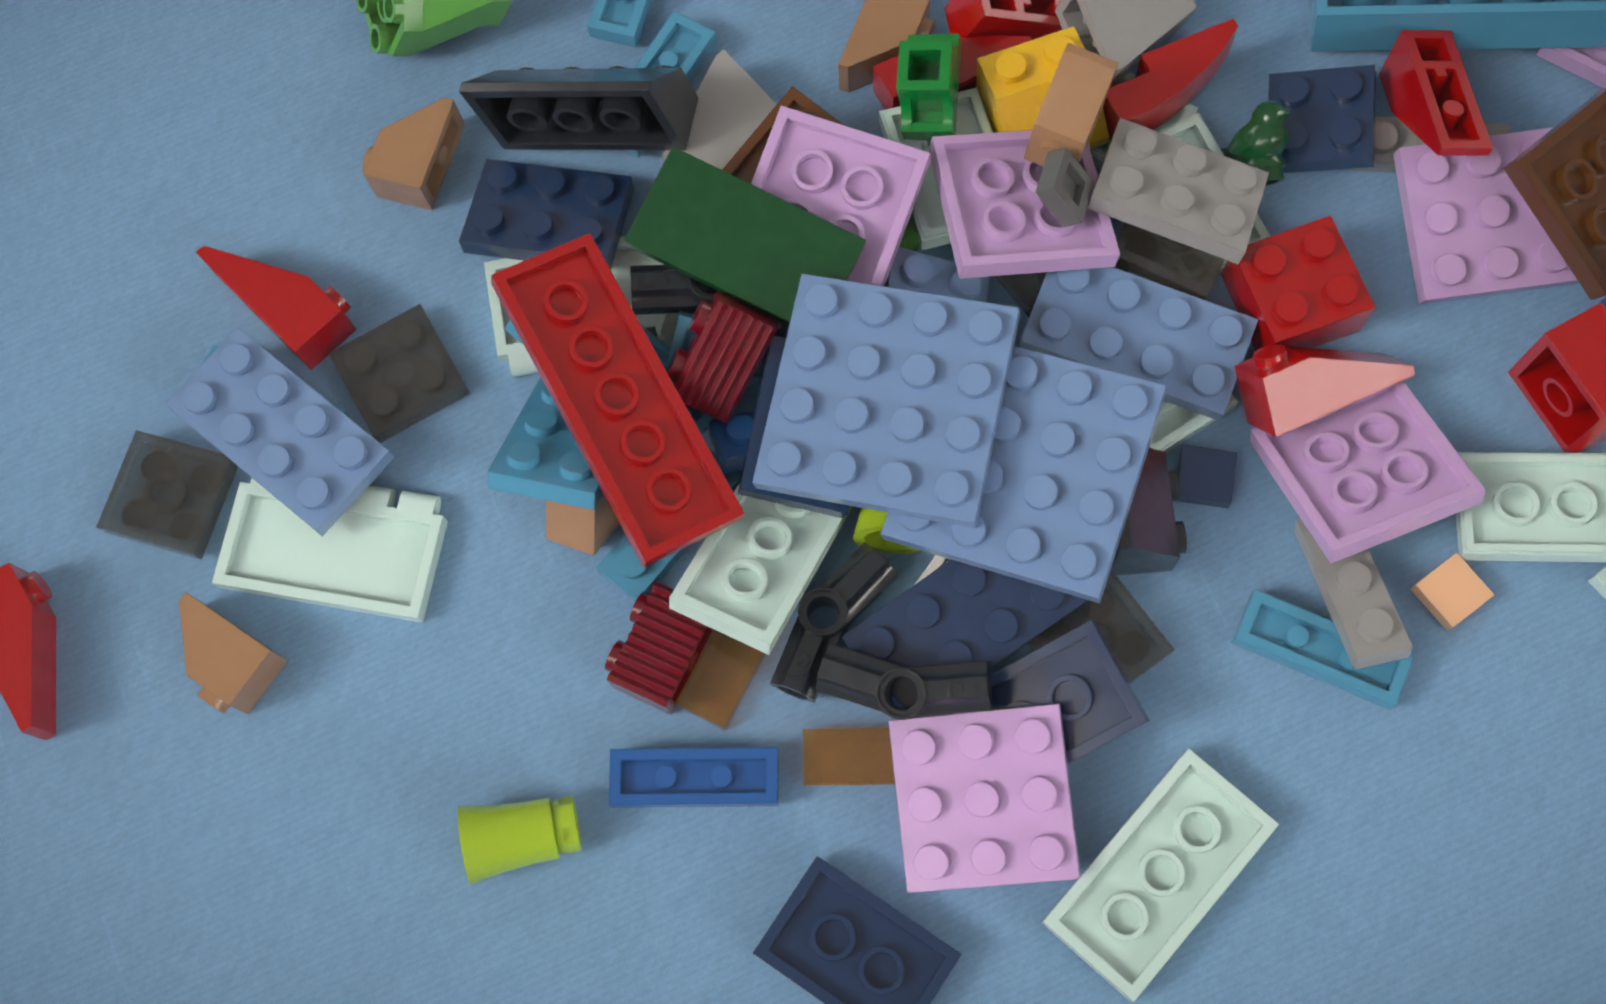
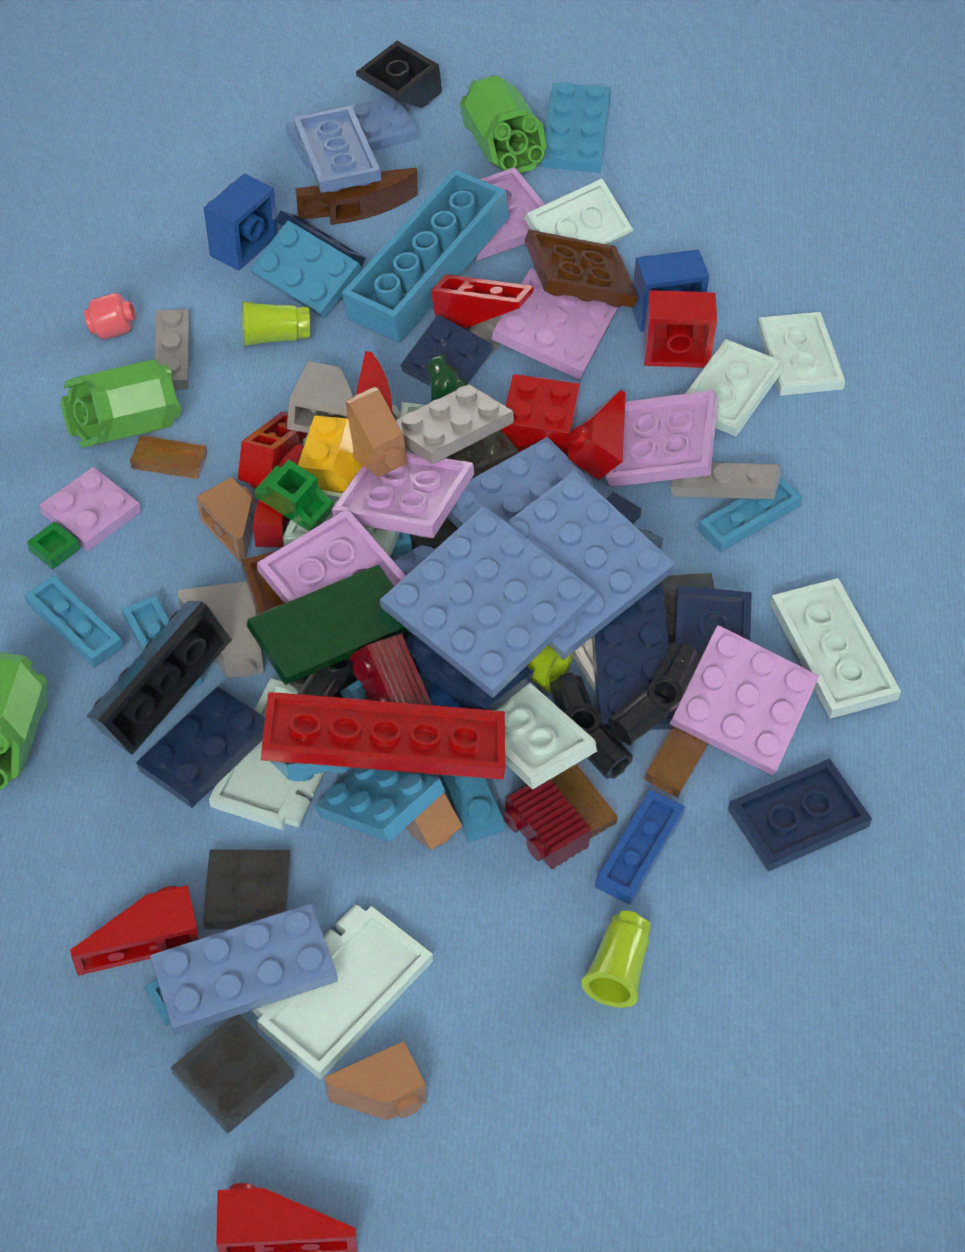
camera: 70 degrees left, 20 degrees down
(415, 155) = (102, 802): medium nougat slope -> none
(1064, 187) = (417, 462): dark grey plate -> none
(1452, 592) = (752, 447): light nougat tile -> none

